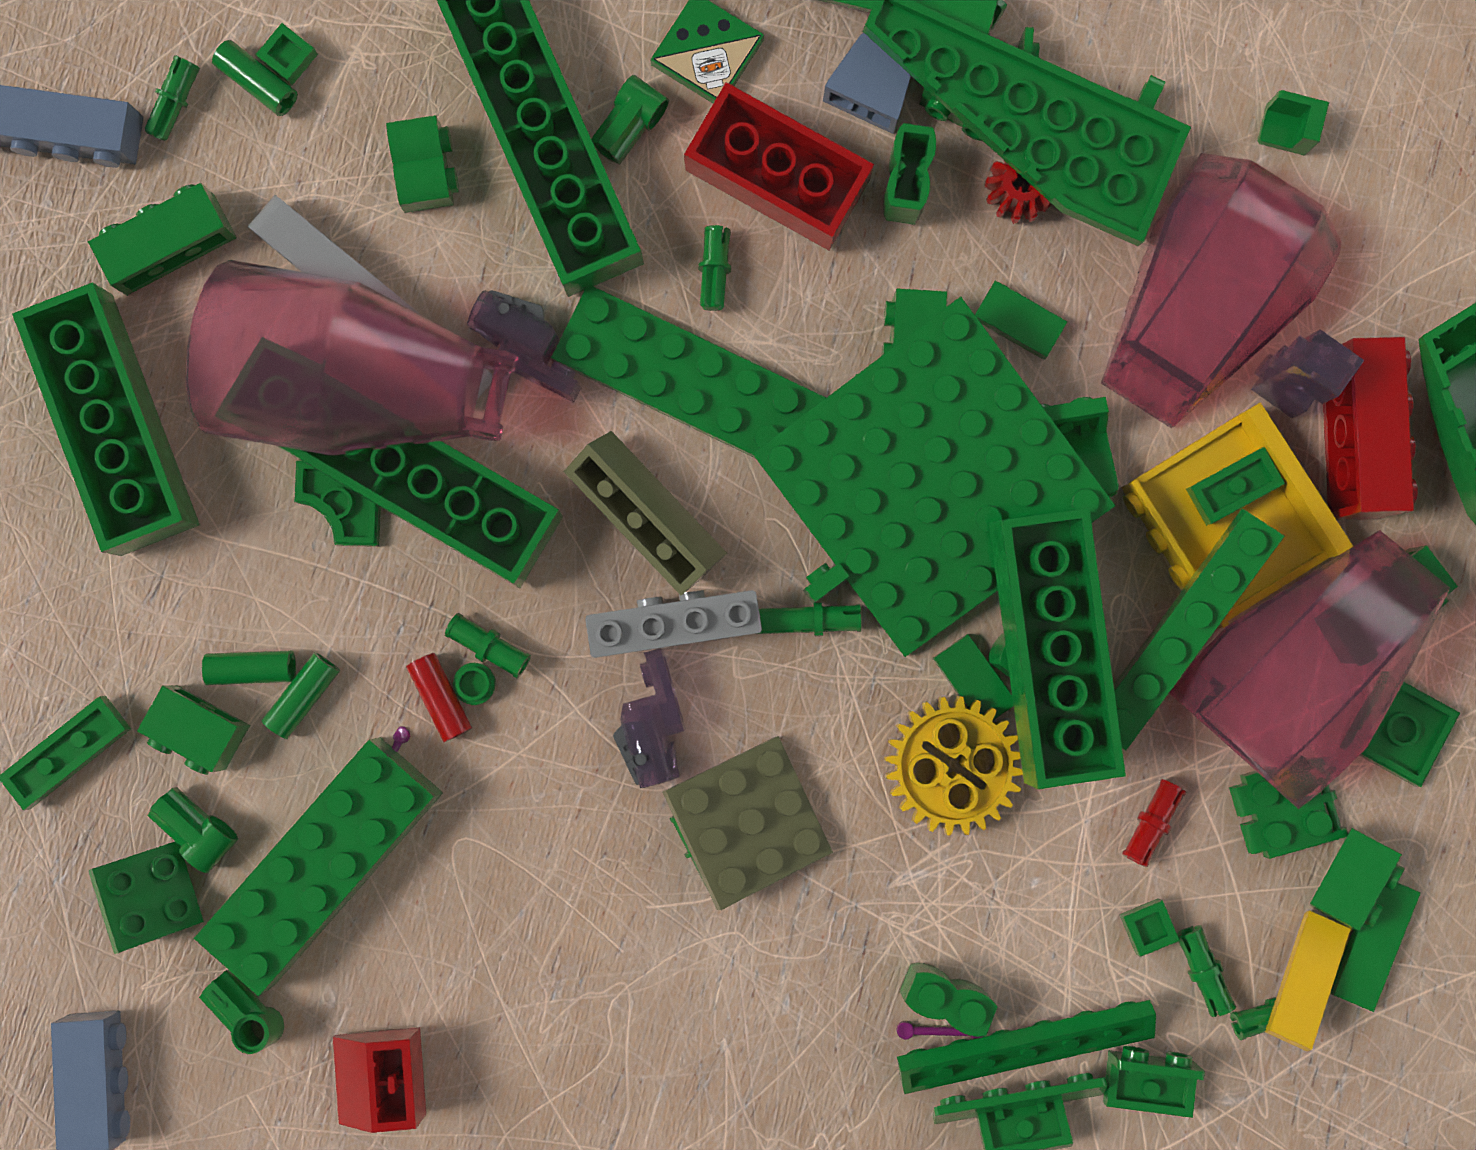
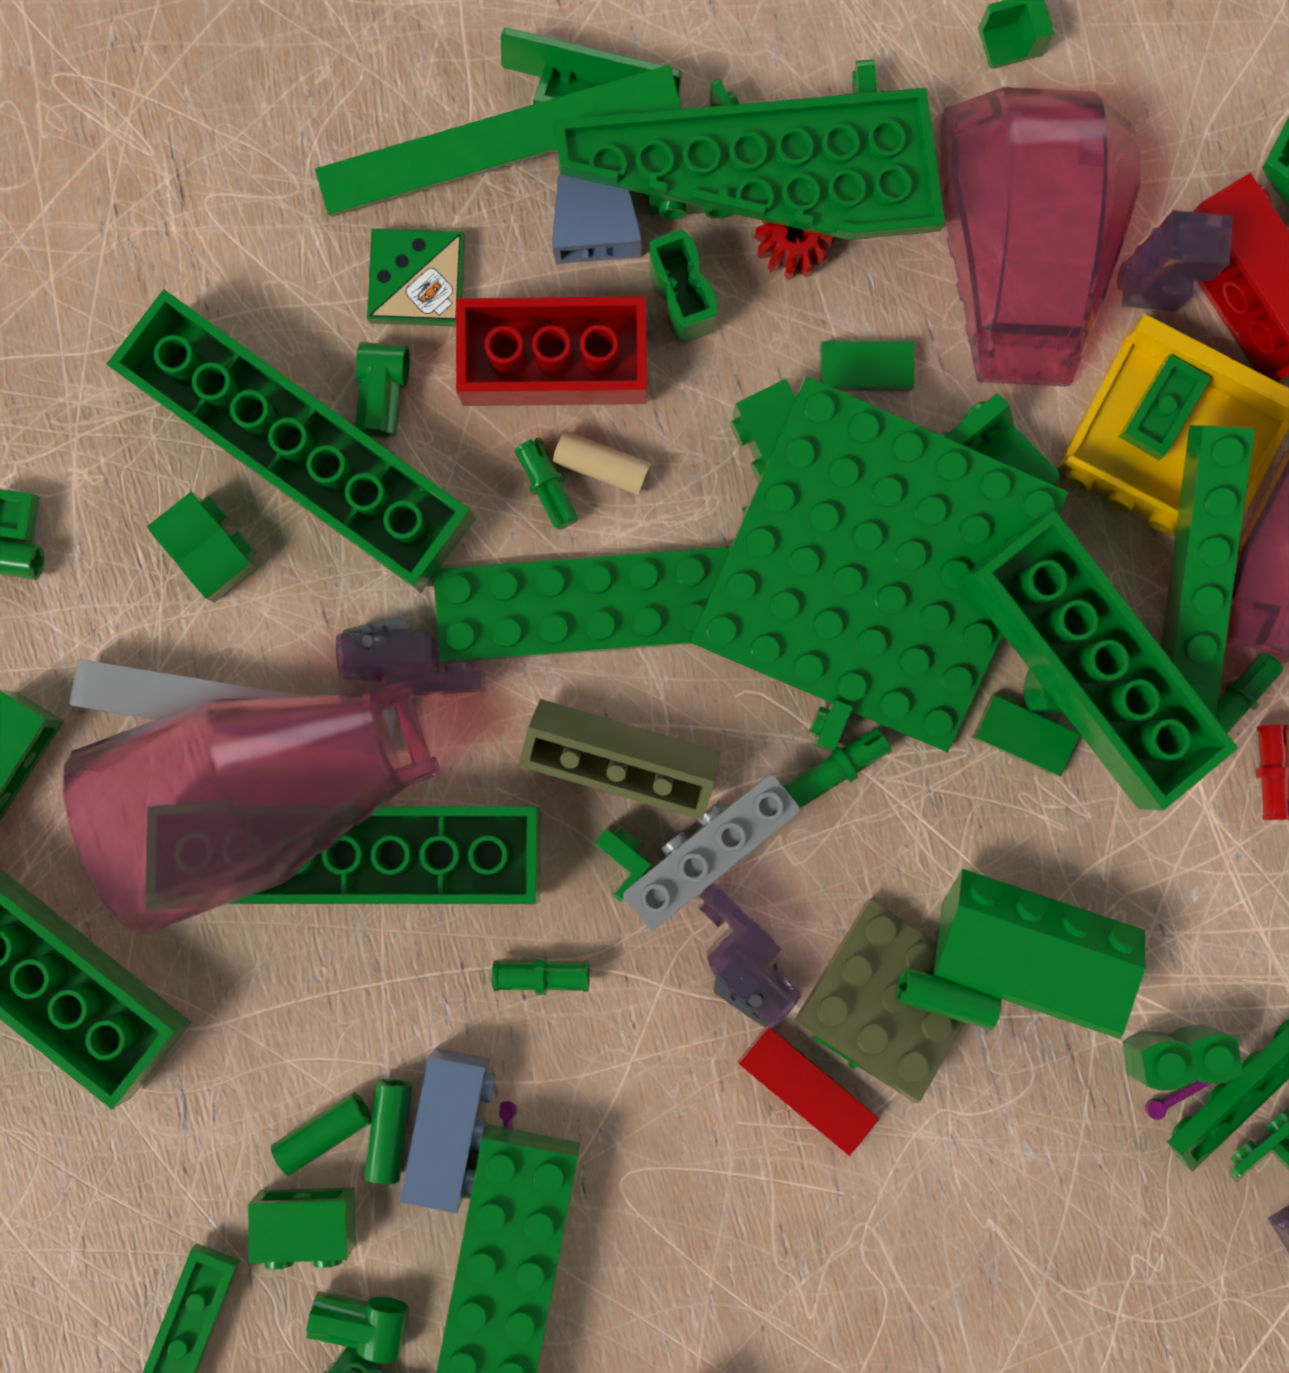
camera: 30 degrees left, 0 degrees up
(346, 720) = (447, 1130): none -> sand blue brick
(350, 515) = (334, 928): green tile -> none
(438, 697) = (523, 1054): red piece -> none
(474, 683) = (549, 1020): green plate -> none
(608, 584) = (623, 849): none -> green bracket
(642, 855) = (808, 1090): none -> red tile
(767, 276) = (601, 462): none -> tan piece
(790, 843) = (947, 999): none -> green piece
(883, 851) = (1040, 953): none -> green slope
(932, 796) = (1058, 787): yellow gear -> none
(1165, 747) = (1247, 690): none -> green axle

